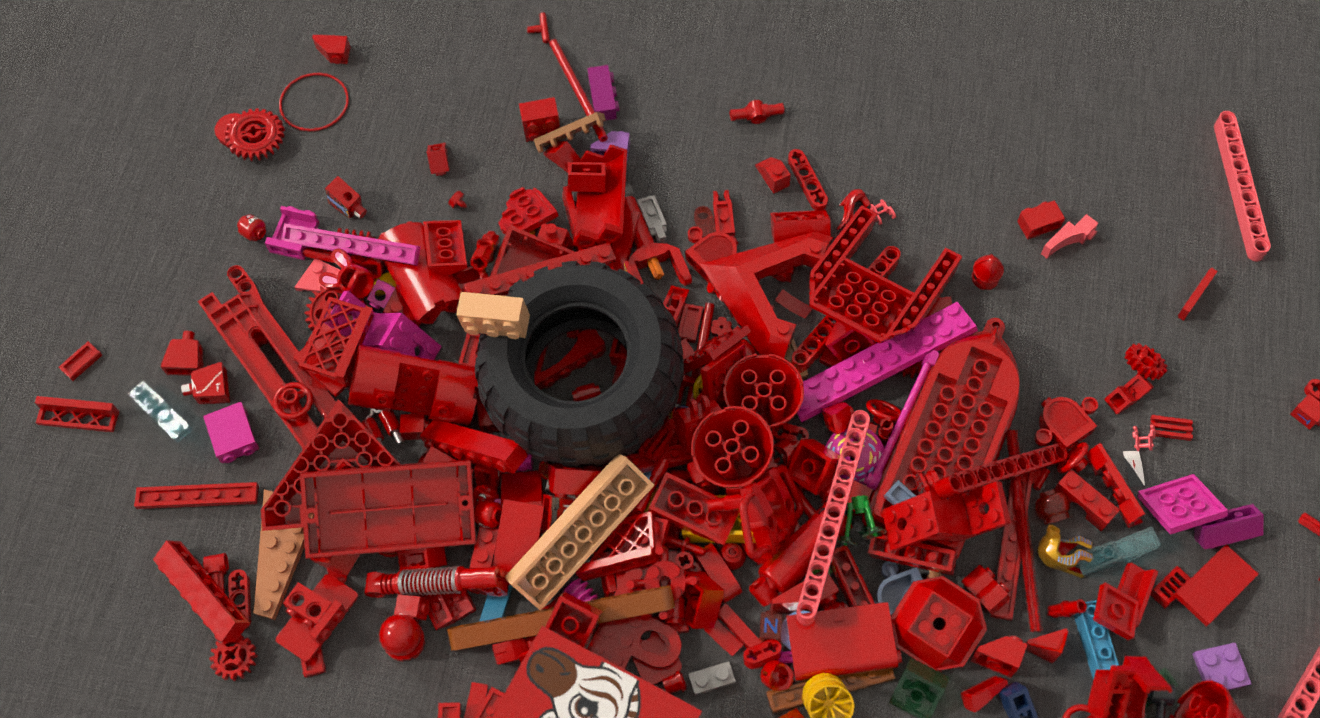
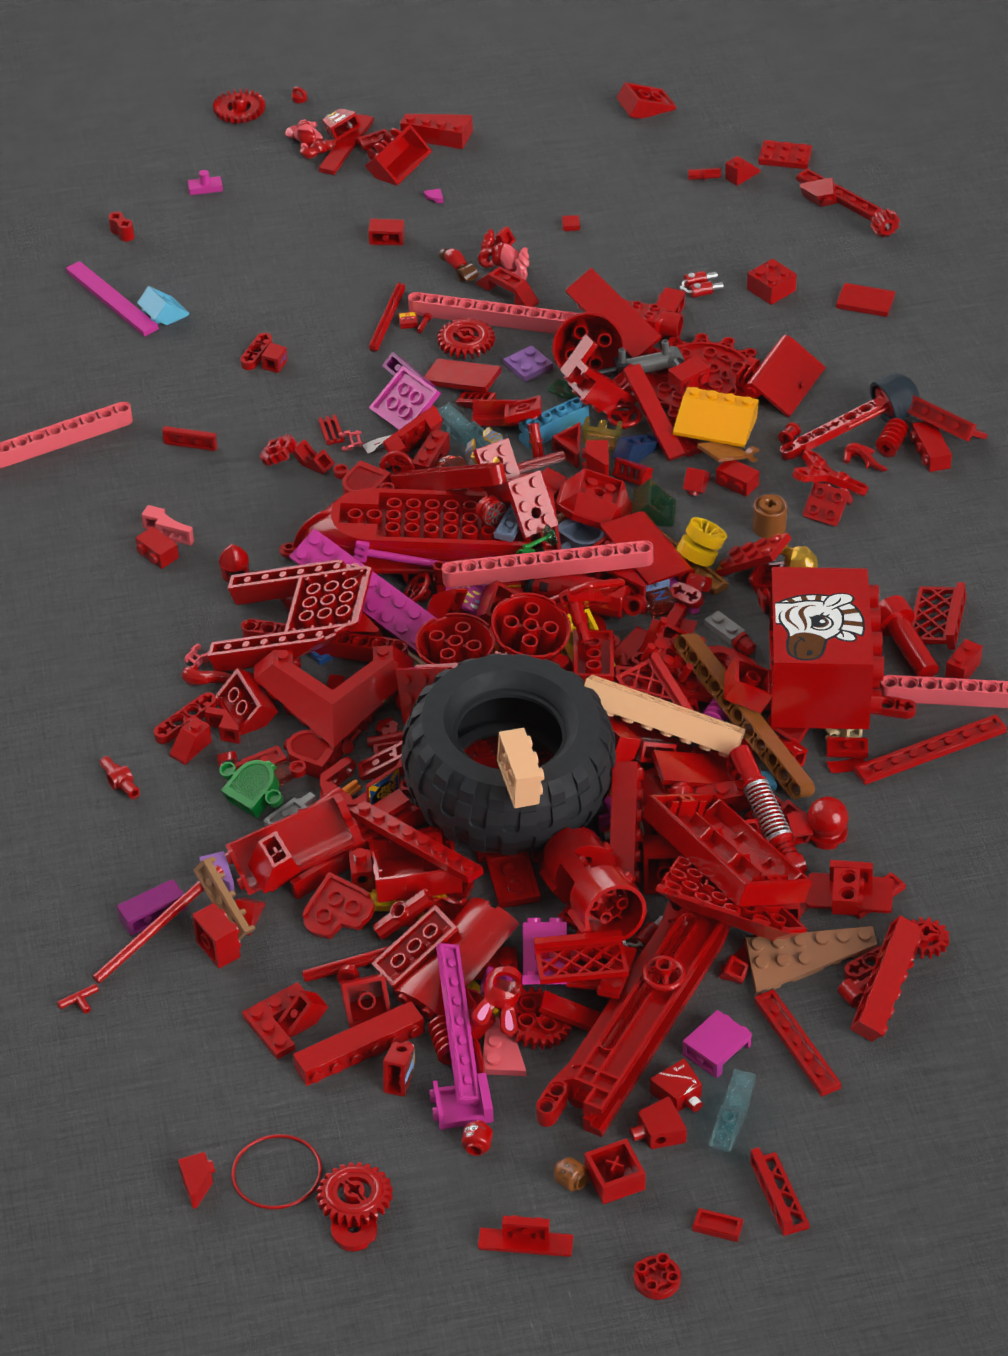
camera: 115 degrees left, 20 degrees down
(66, 301) = (657, 1276): none -> red tile
(150, 228) = (525, 1236): none -> red bracket
(160, 303) = (615, 1171): none -> red brick
(180, 276) = (571, 1174): none -> dark orange head
(386, 181) = (358, 1043): none -> red brick
(428, 202) = (364, 998): none -> red slope
(450, 133) = (263, 1021): none -> red plate
(471, 212) = (334, 967): none -> red axle
(690, 194) = (251, 786): none -> green piece
(740, 193) = (228, 756): none -> red tile
(776, 203) = (227, 726): none -> red slope
(1057, 685) = (601, 432): none -> clear yellow window
(1273, 629) = (467, 342): none -> red gear

